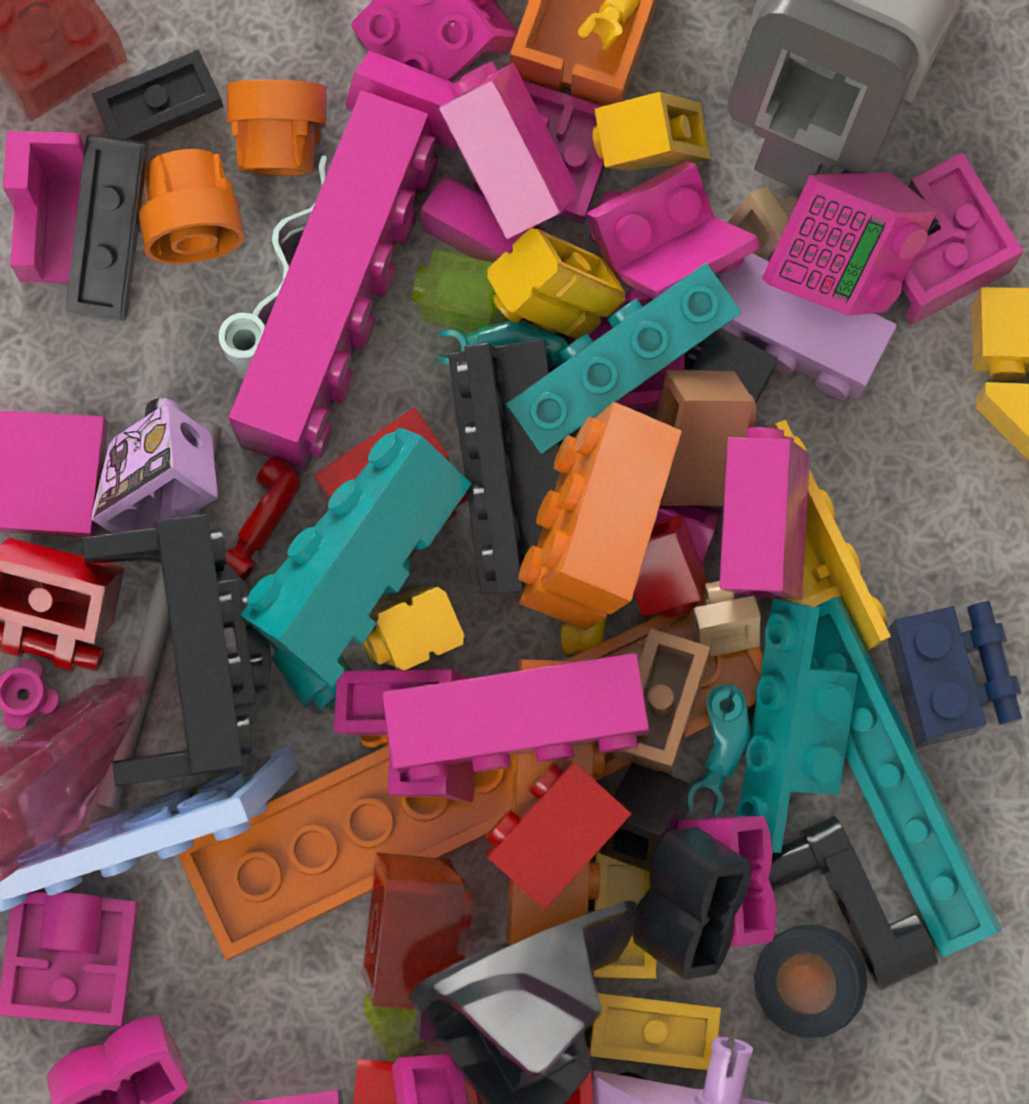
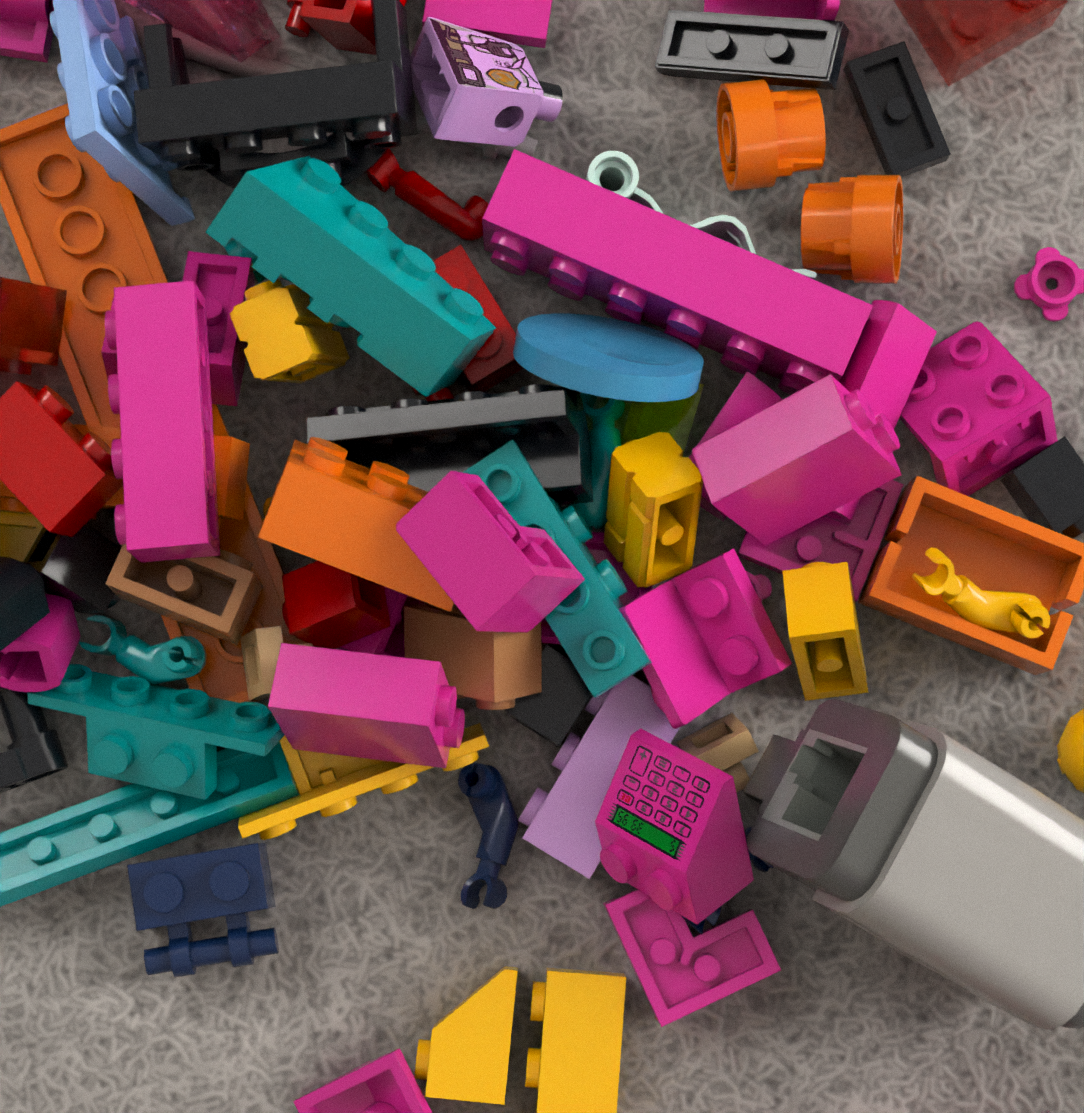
camera: 90 degrees right, 5 degrees up
(421, 325) = (608, 357): none -> dark azure piece
(630, 397) = (484, 561): none -> dark pink panel
(854, 416) = (499, 827): none -> dark blue arm

